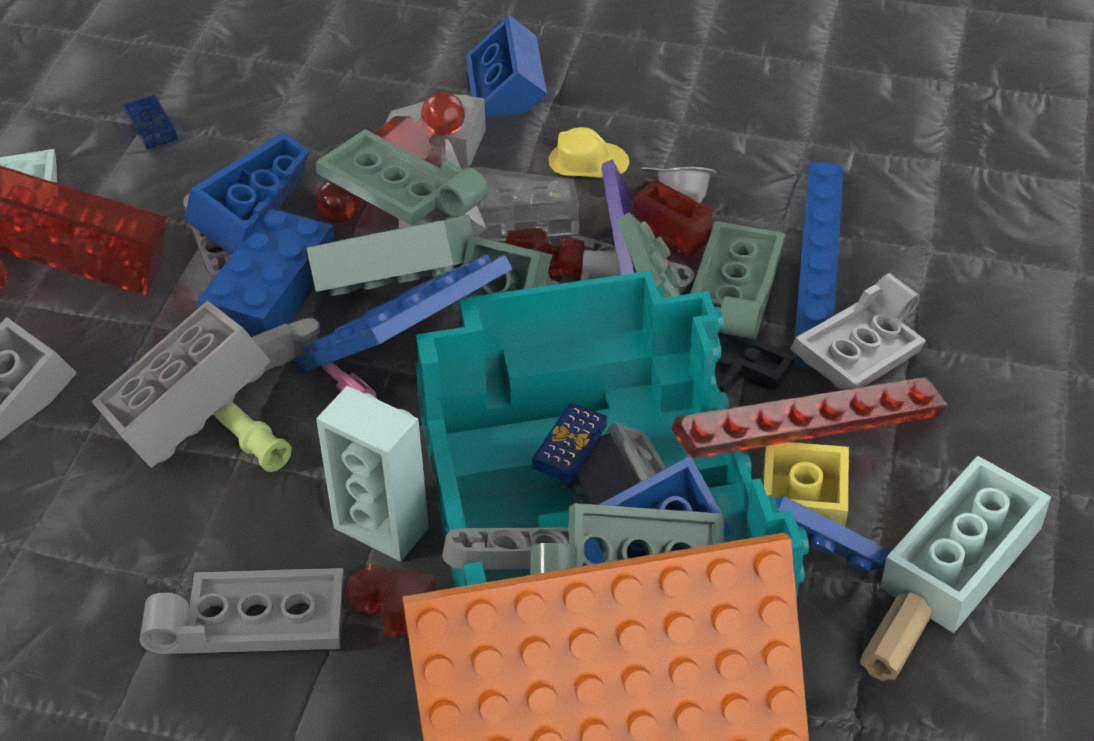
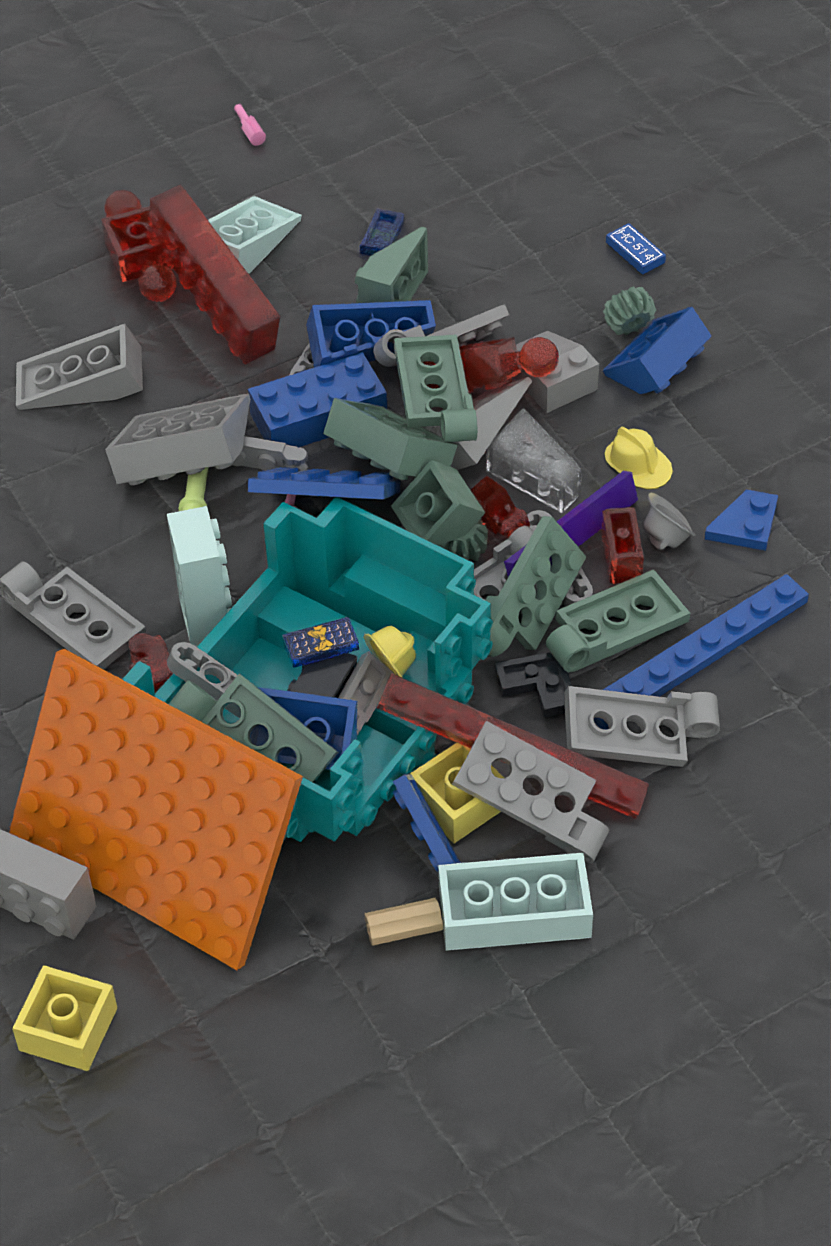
camera: 45 degrees right, 5 degrees up
(216, 133) = (395, 270): none -> sand green slope
(301, 180) = (474, 327): none -> light grey hinge
(386, 15) = (635, 248): none -> blue tile
(450, 52) = (629, 310): none -> sand green gear
(638, 406) = (392, 648): none -> light yellow piece
(729, 147) = (745, 521): none -> blue wing
(932, 454) = (570, 831): none -> light grey hinge

